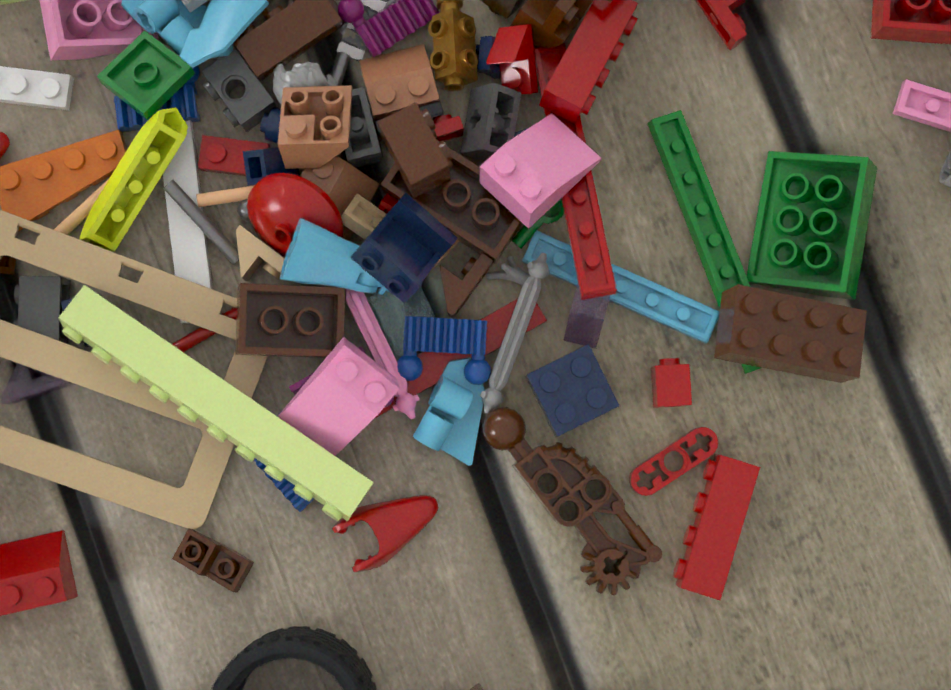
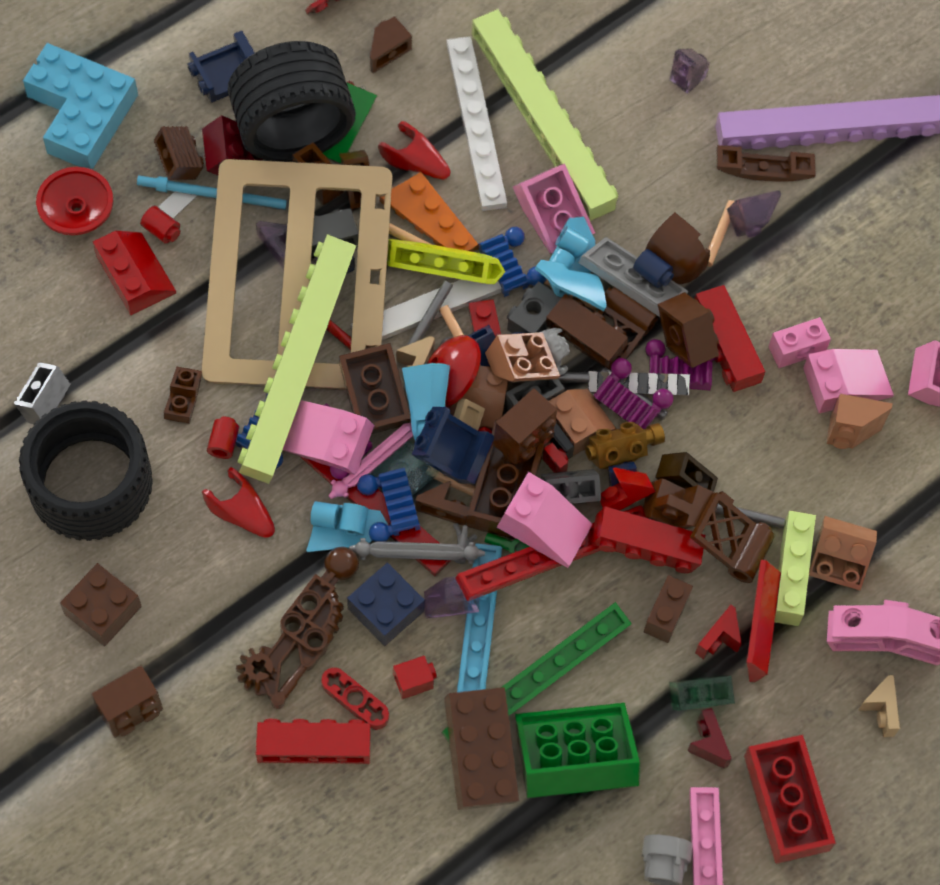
camera: 70 degrees right, 20 degrees down
(146, 75) = (521, 246): green plate -> none
(289, 526) = (223, 438): none -> red brick
(676, 61) = (668, 609): none -> reddish brown brick
(793, 58) = (702, 692): none -> clear green brick
(851, 65) = (713, 746): none -> dark red slope

